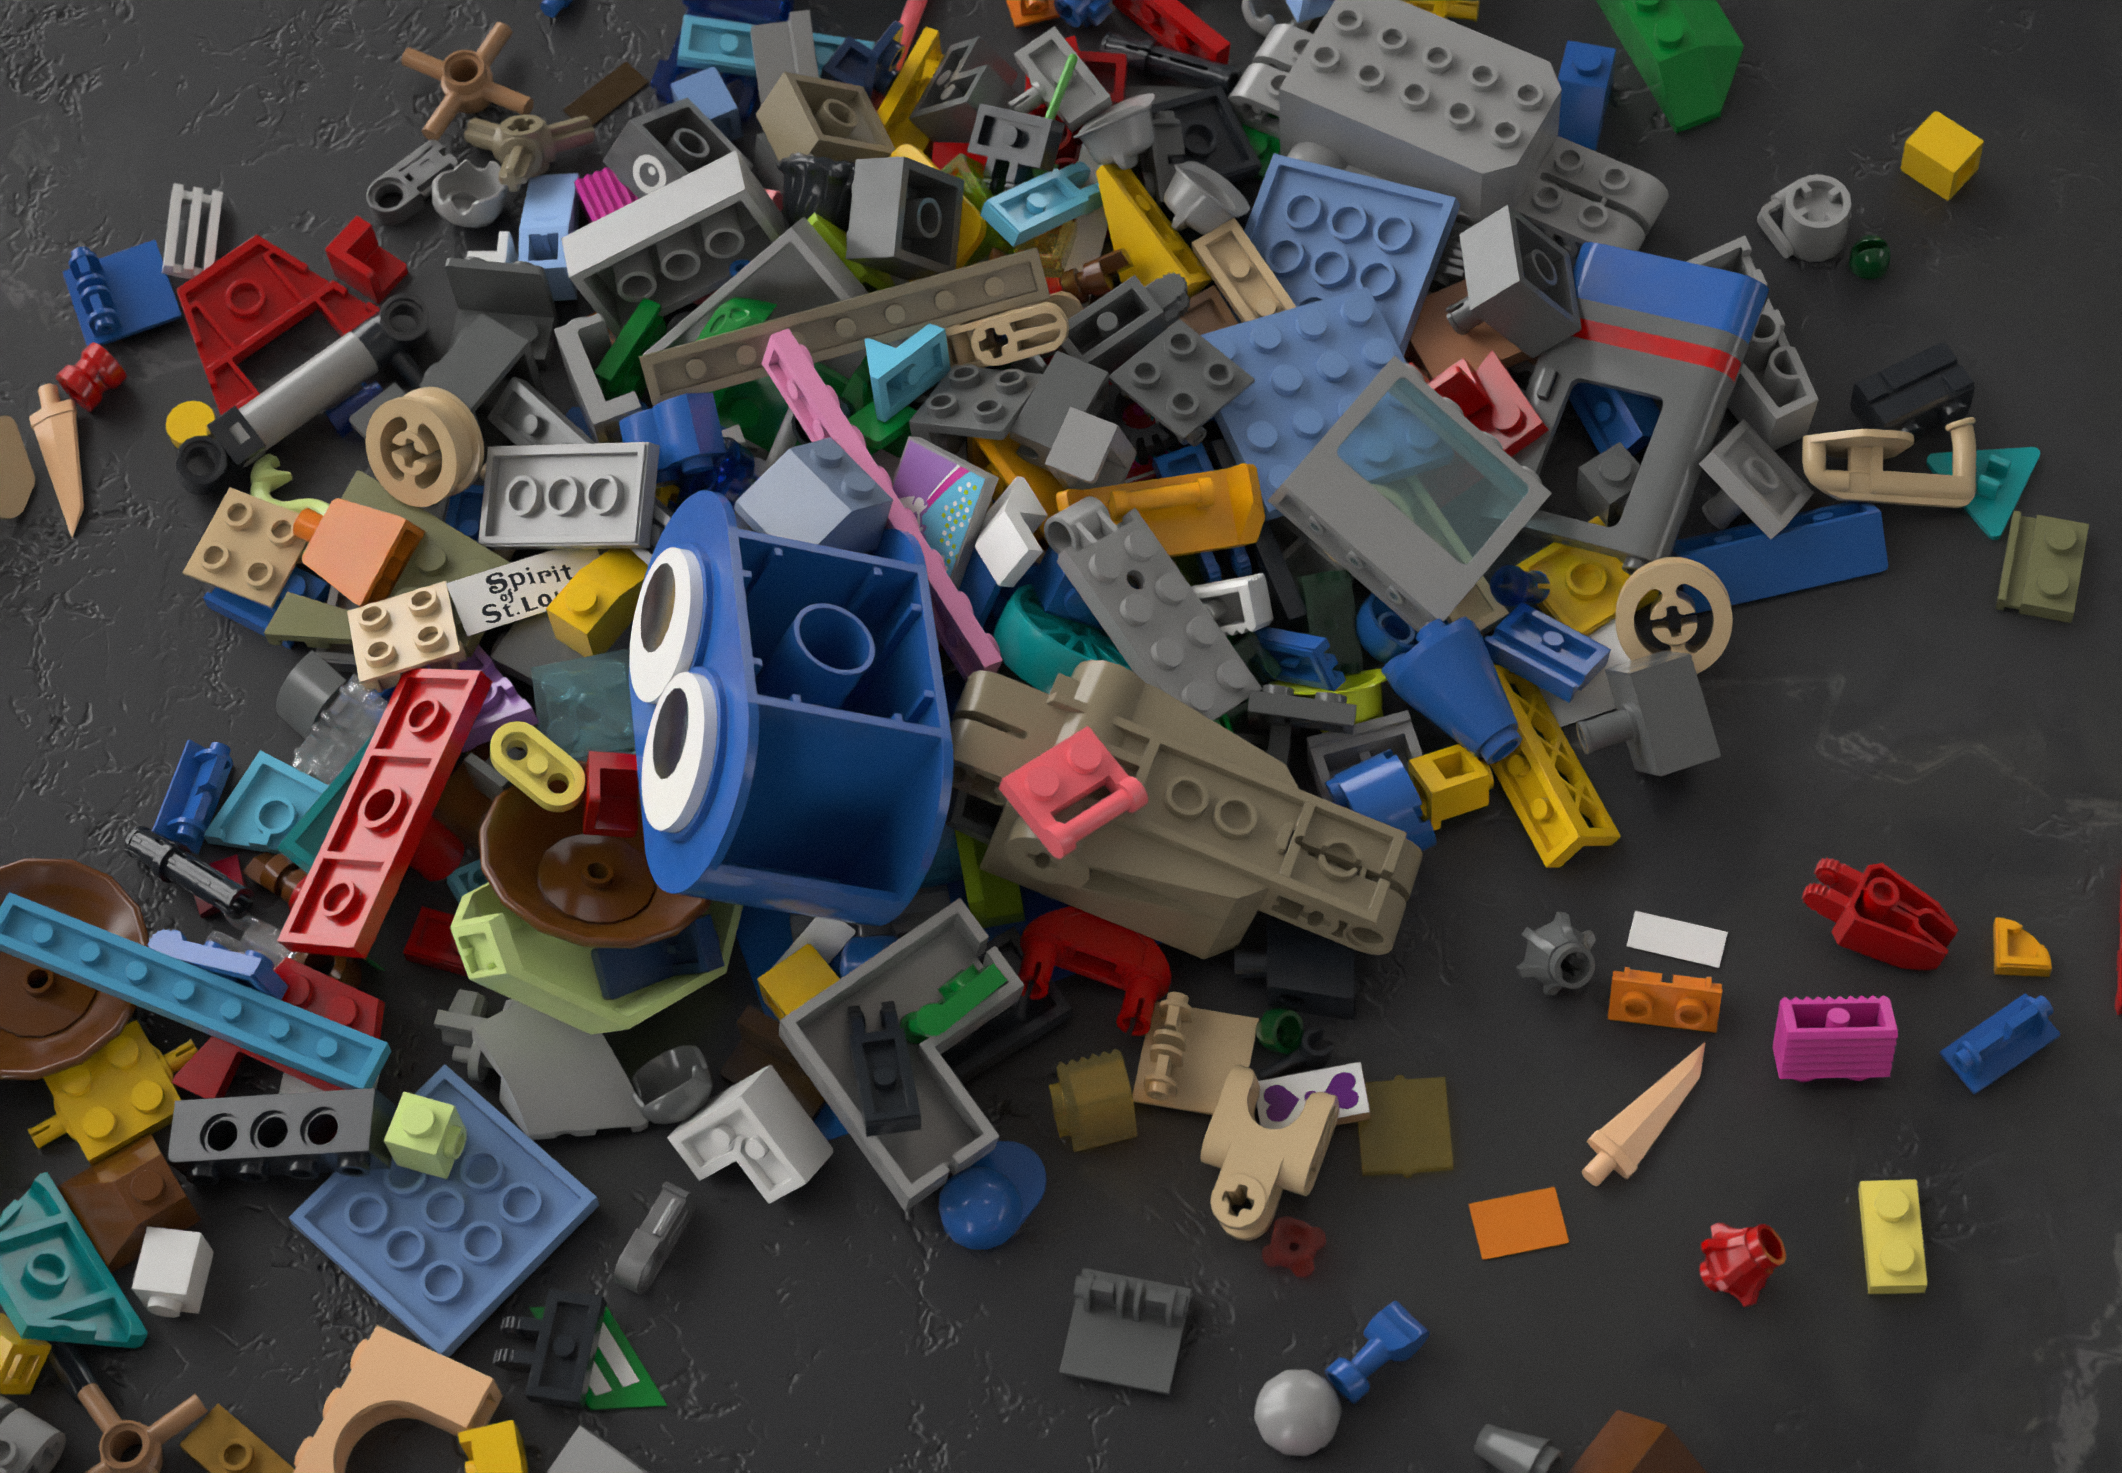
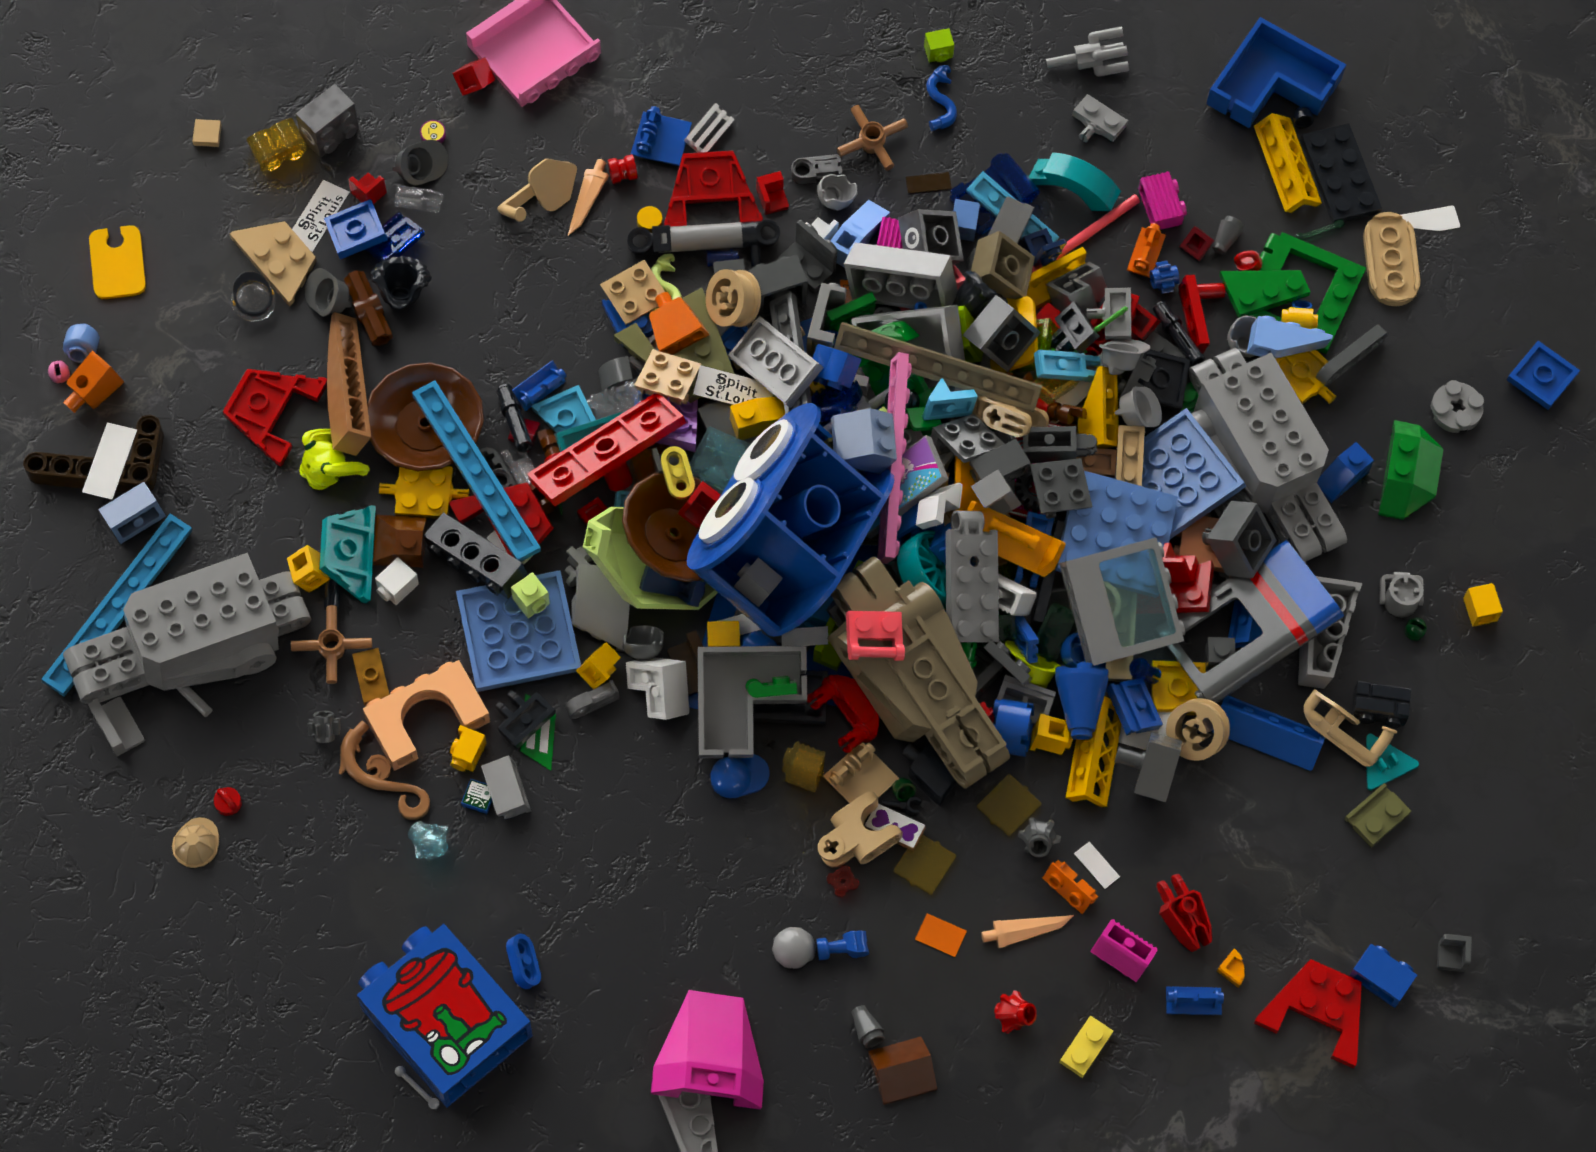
camera: 25 degrees right, 5 degrees up
(247, 969) = (497, 464): hinge -> none
(527, 144) = (876, 185): dark tan bush -> none
(626, 1174) = (599, 666): none -> yellow brick
(806, 841) = (757, 581): none -> light grey brick
(883, 1074) = (724, 696): black hinge -> none
(941, 890) = (806, 636): none -> white sticker
(1125, 1331) = (750, 867): dark grey hinge -> none
(1465, 941) = (1009, 805): none -> clear yellow piece
(1752, 482) = (1279, 694): light grey tile -> none

